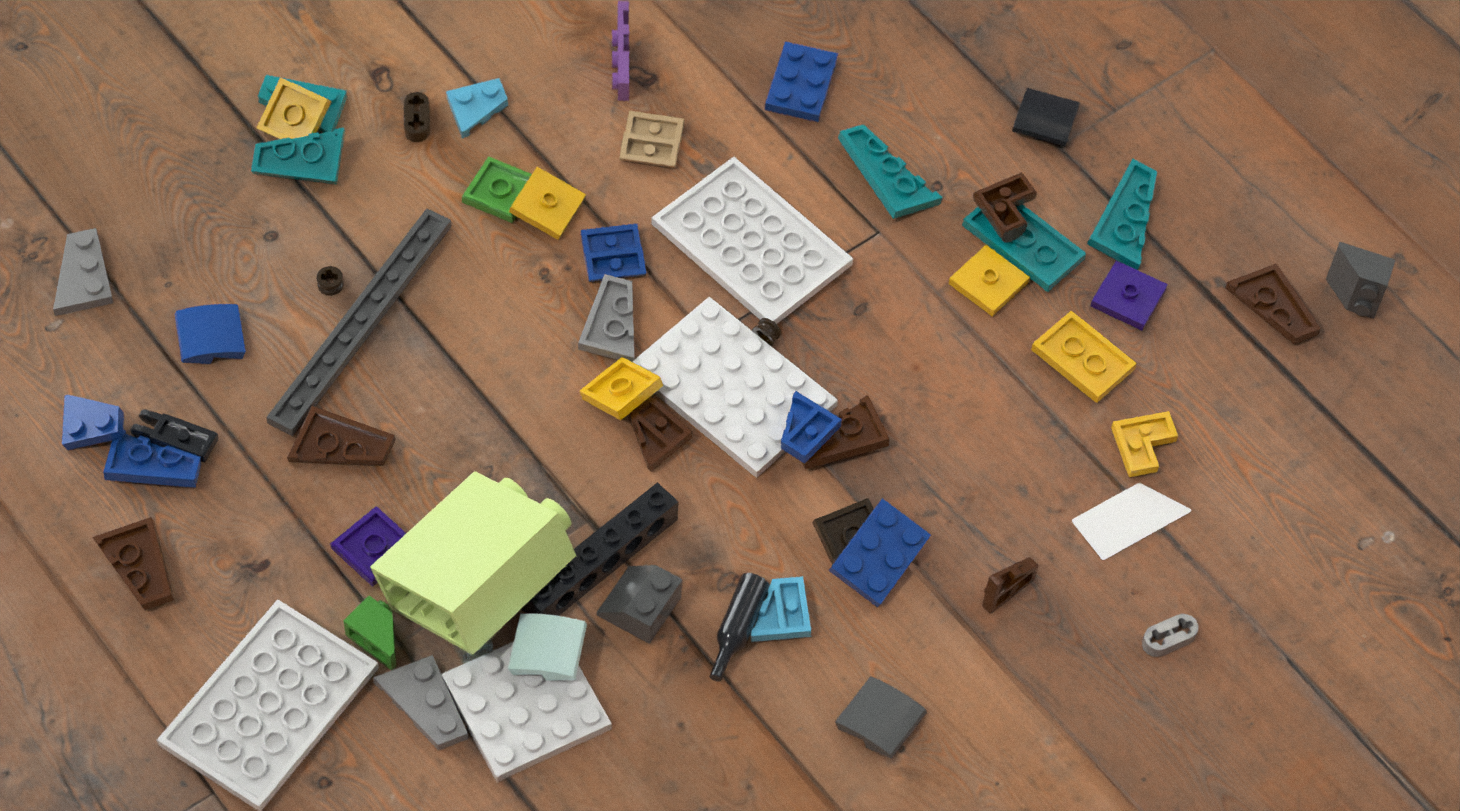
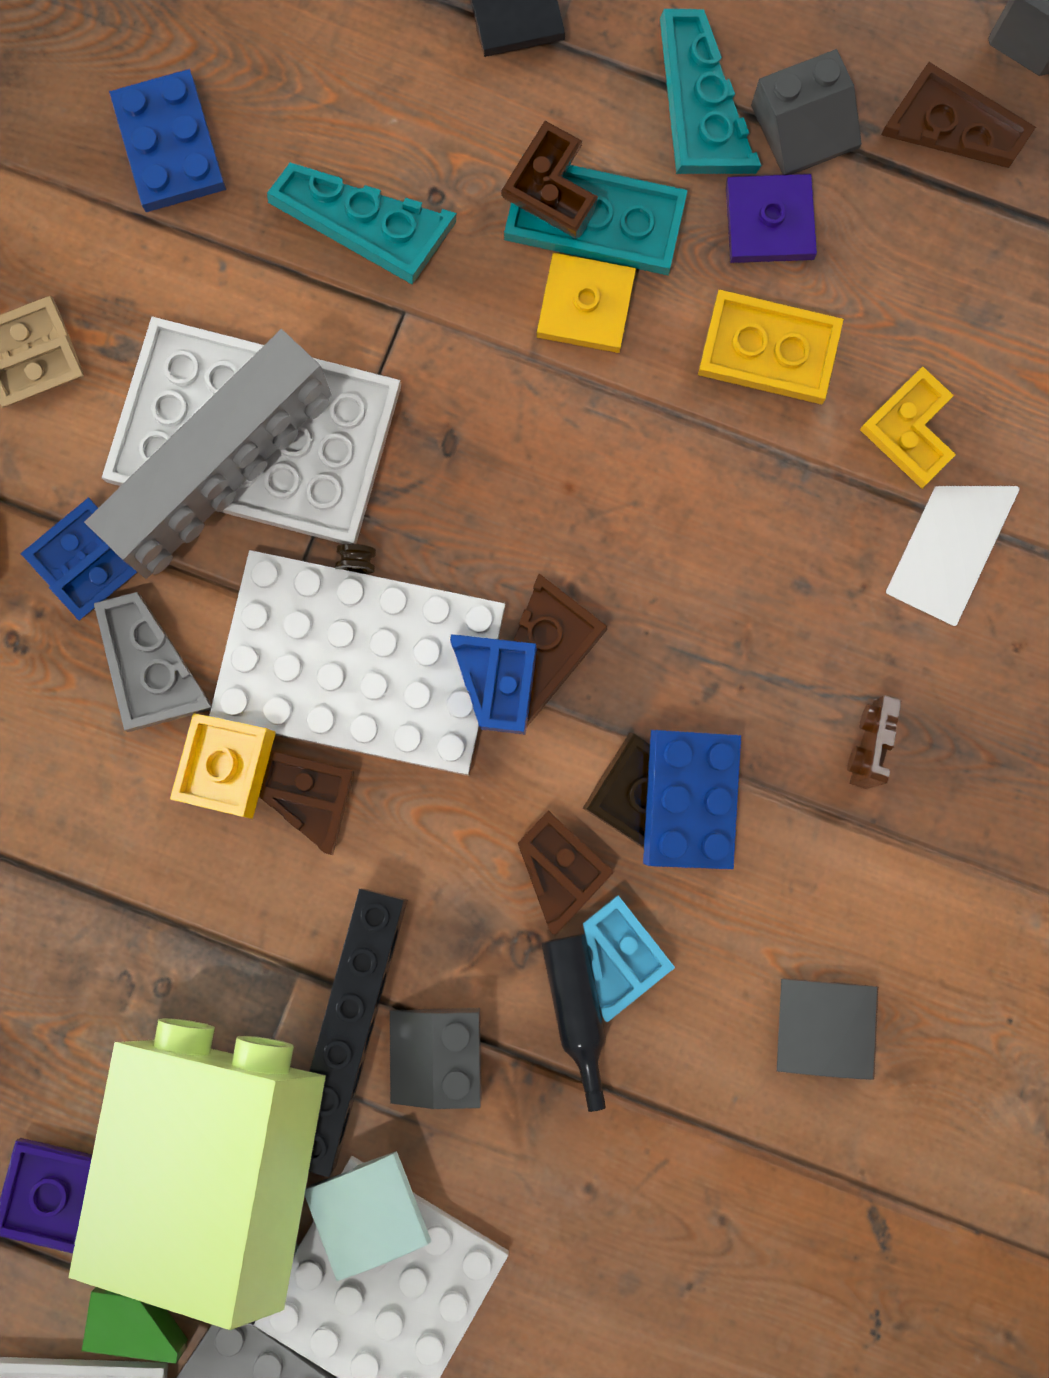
camera: 30 degrees left, 25 degrees up
(722, 231) = (212, 456): none -> light grey brick
(778, 548) = (561, 870): none -> reddish brown wing
(1185, 252) = (808, 112): none -> dark grey slope

